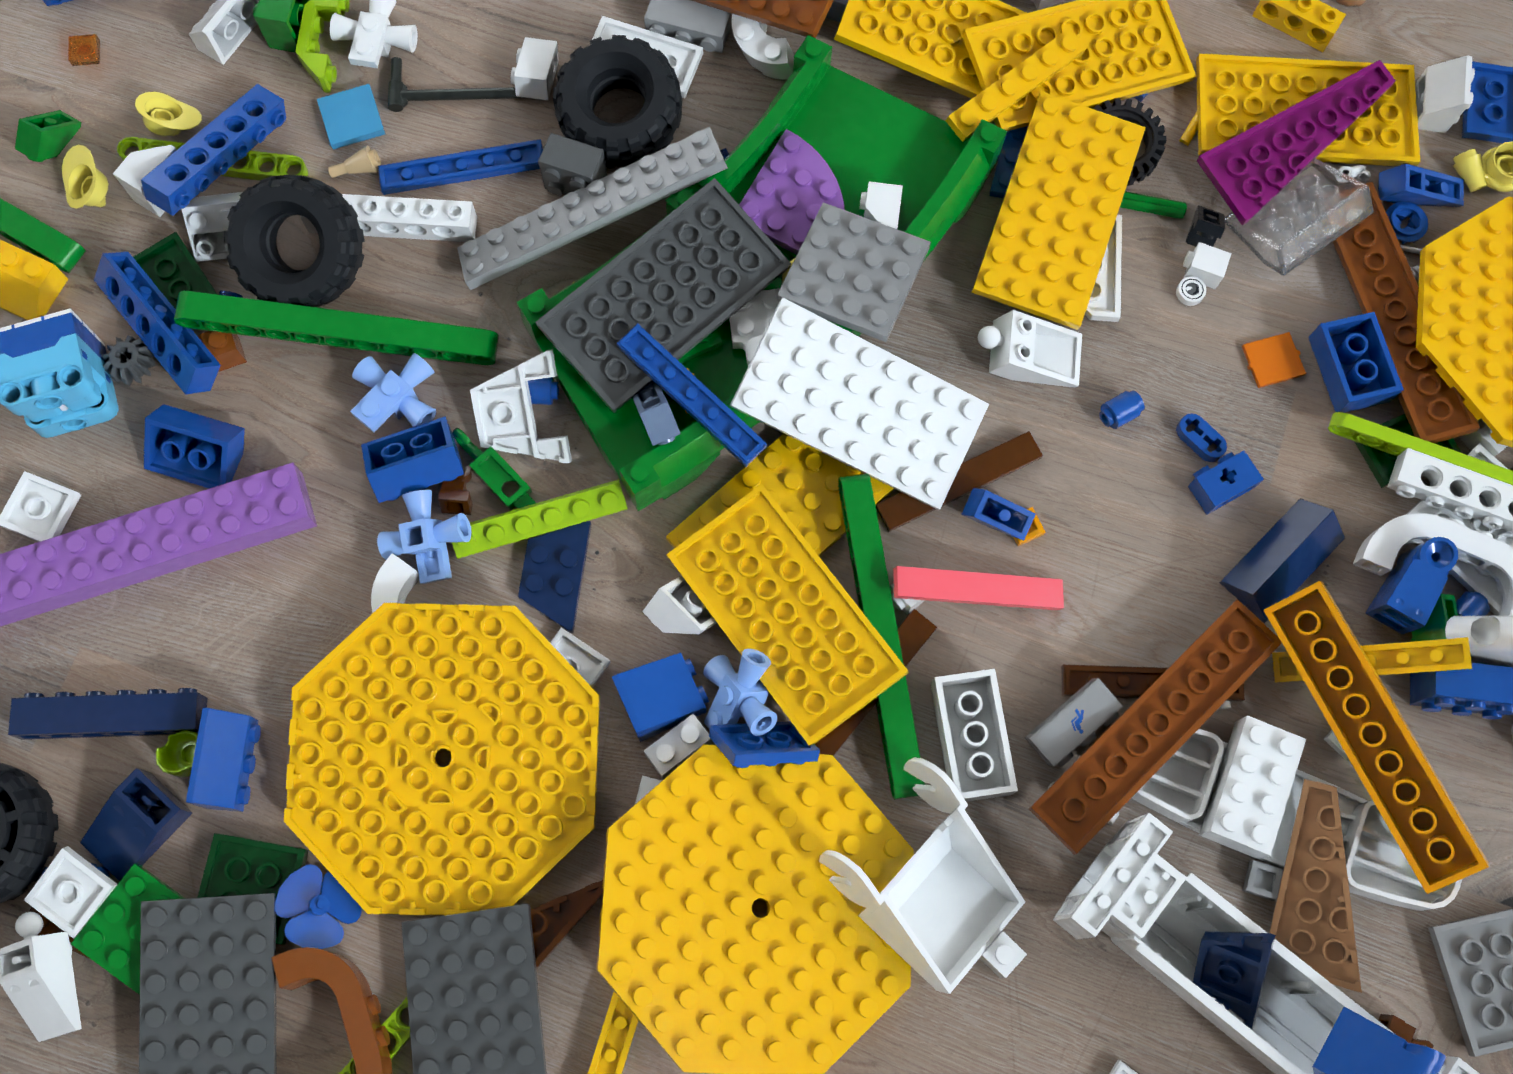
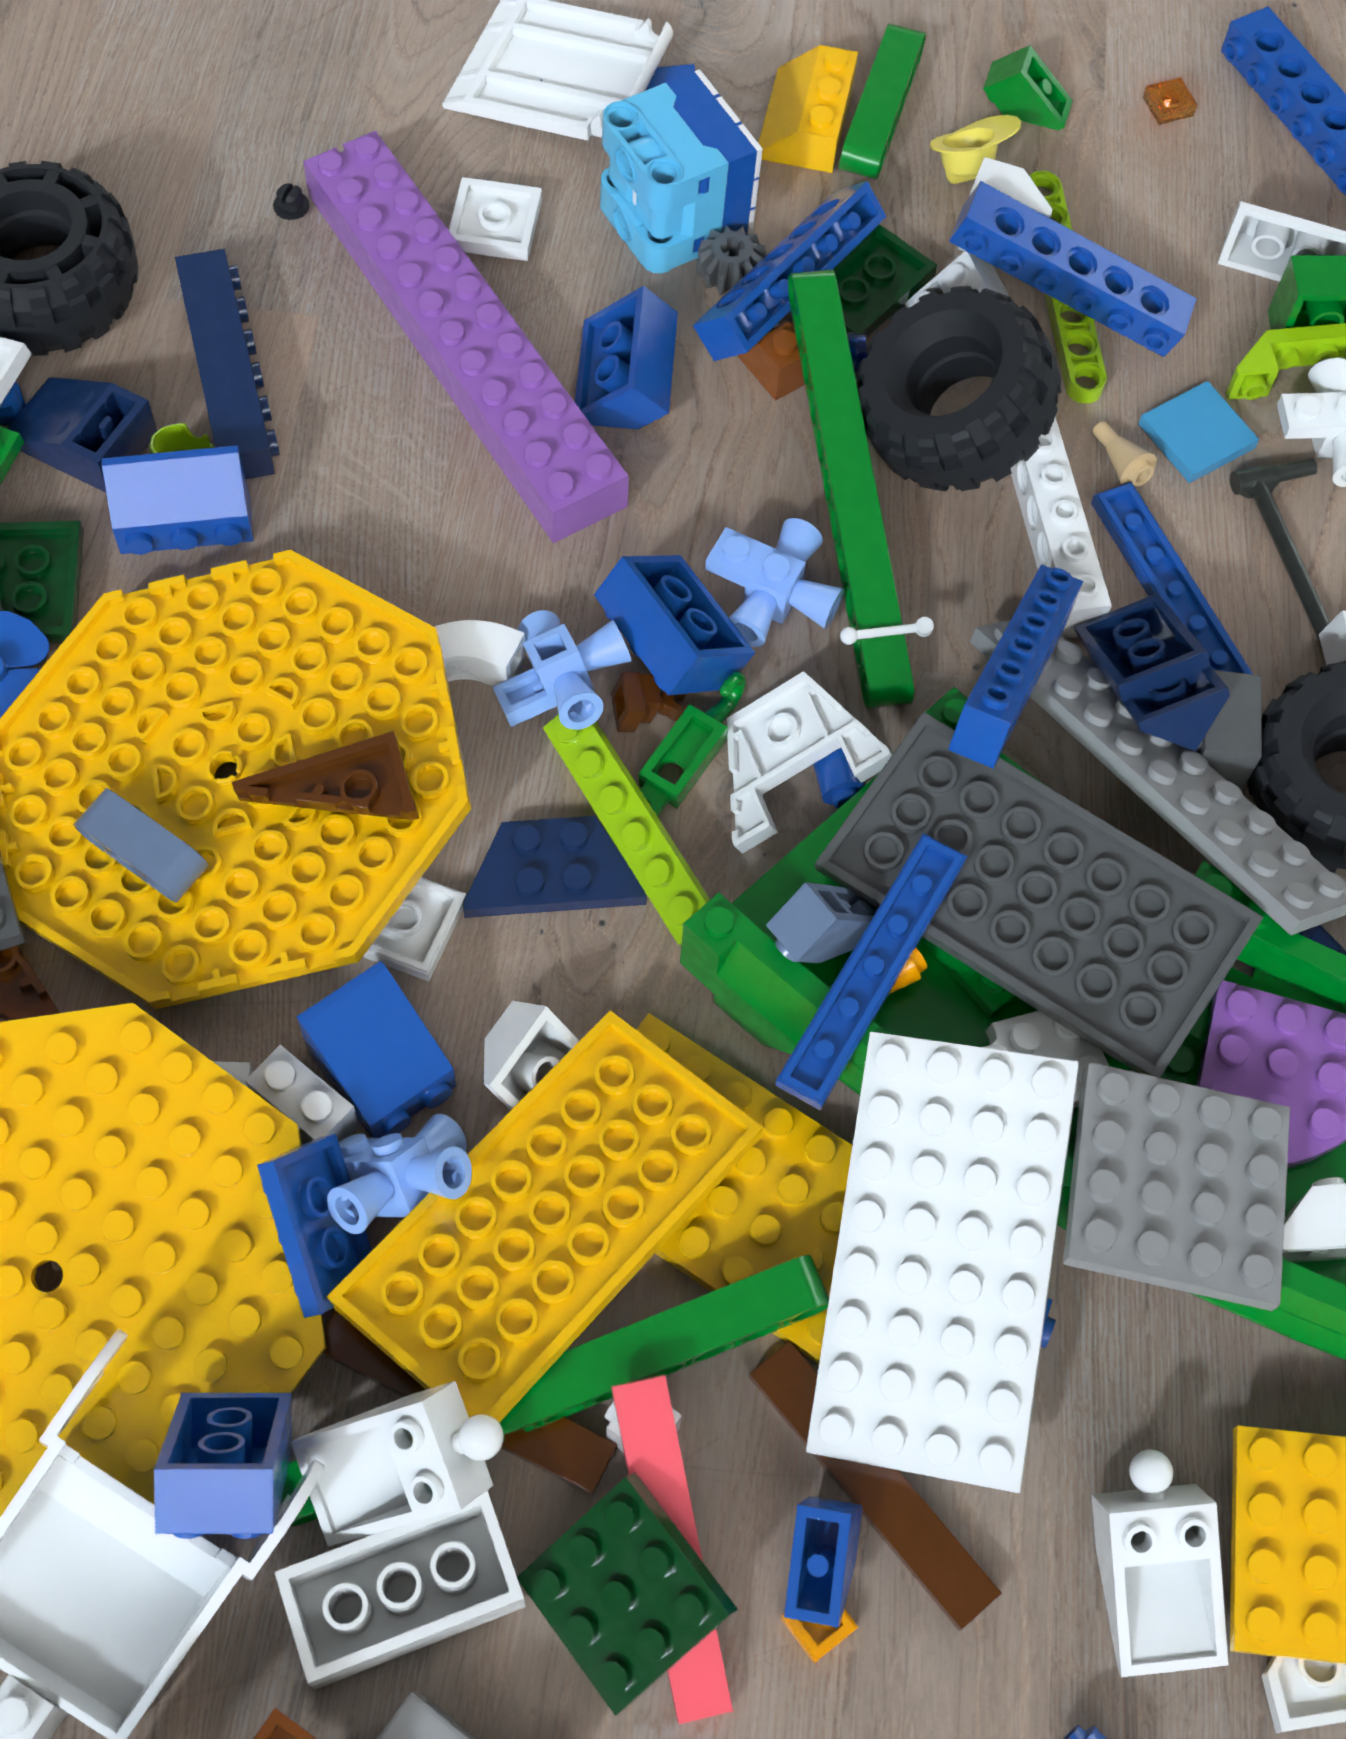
camera: 75 degrees right, 10 degrees down
(165, 114) = (1109, 207): light yellow piece -> none
(456, 313) = (923, 628): none -> white hinge
(482, 672) = (351, 779): none -> reddish brown wing
(488, 816) = (141, 845): none -> sand blue beam
(514, 261) = (1015, 666): none -> blue brick
(526, 188) = (1156, 670): none -> dark blue slope
(901, 810) = (223, 1465): none -> blue brick
(913, 717) = (399, 1463): none -> white slope
(998, 616) = (626, 1593): none -> dark green plate

